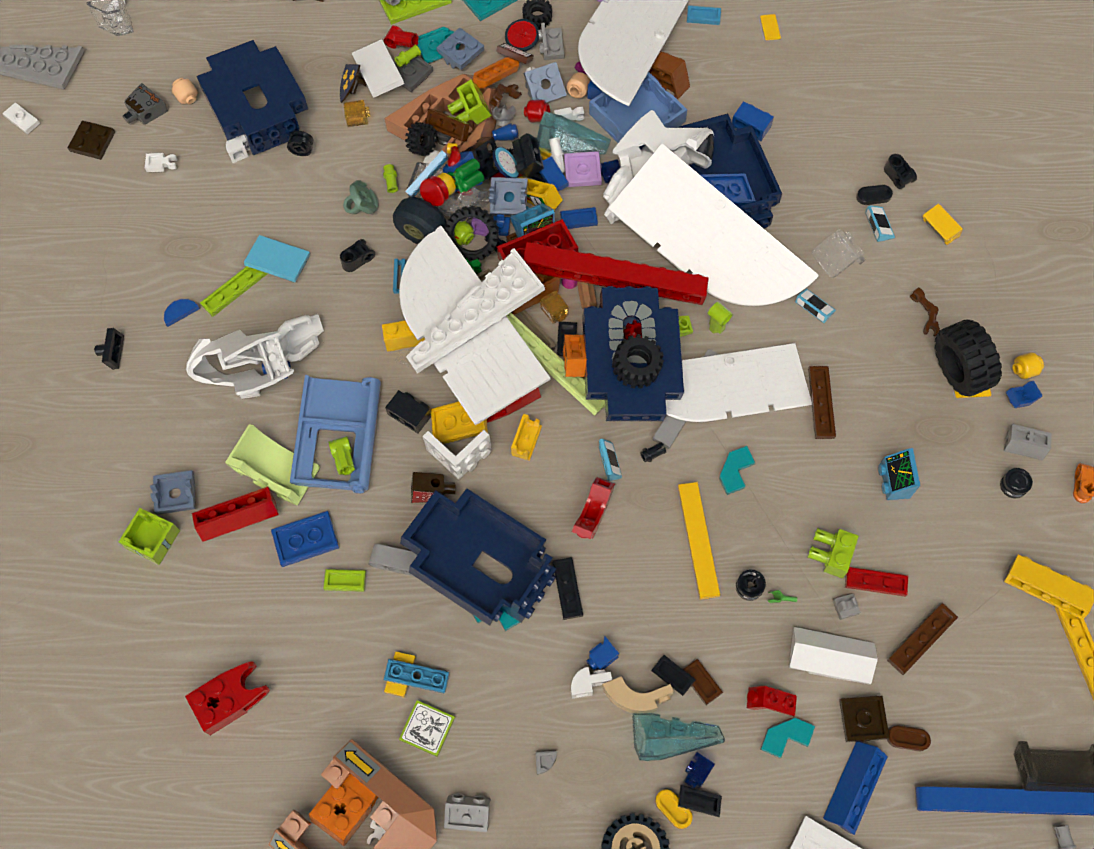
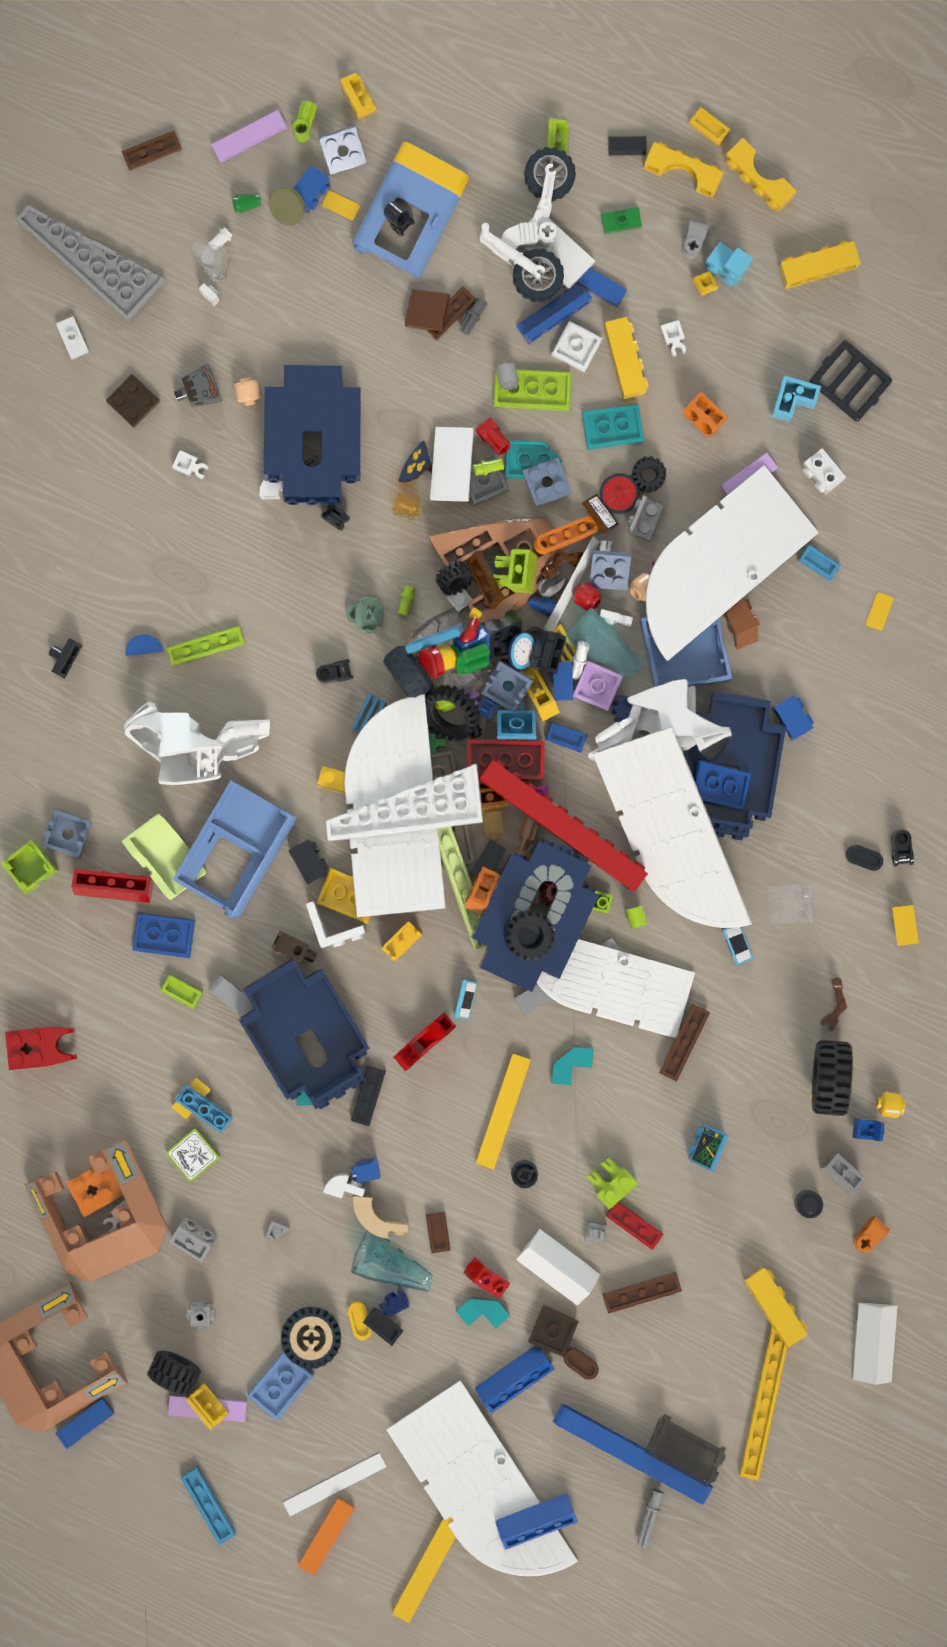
camera: 20 degrees right, 20 degrees up
(123, 42) = (209, 293): none -> white plate
(277, 258) = (257, 637): medium azure tile -> none
(341, 453) = (230, 869): lime piece -> none
(520, 104) = (573, 582): none -> white sticker
(652, 452) = (506, 1011): black pin -> none
(673, 675) = (416, 1216): black tile -> none
(778, 597) = (543, 1197): bright green hand -> none
(879, 223) = (850, 891): slope -> none

